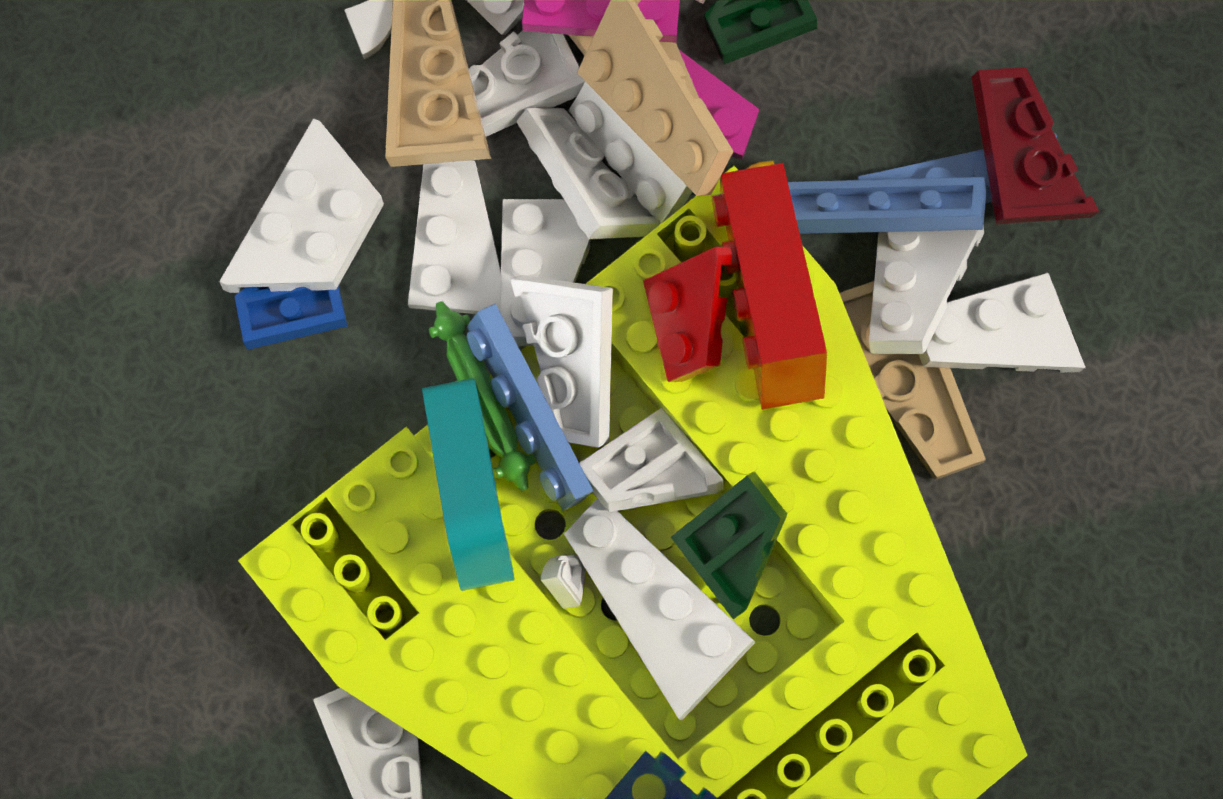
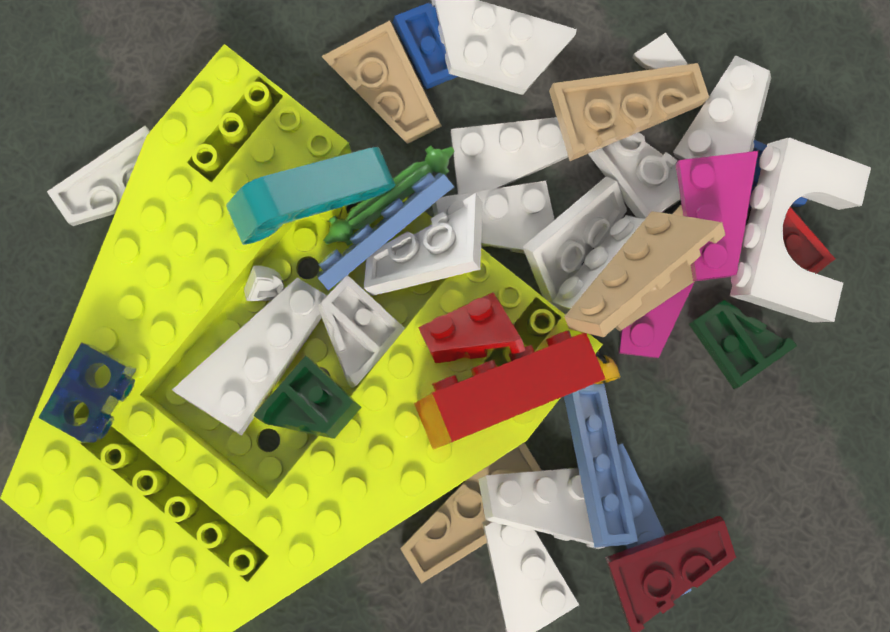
camera: 75 degrees right, 5 degrees up
(325, 372) = (386, 80): none -> tan wing

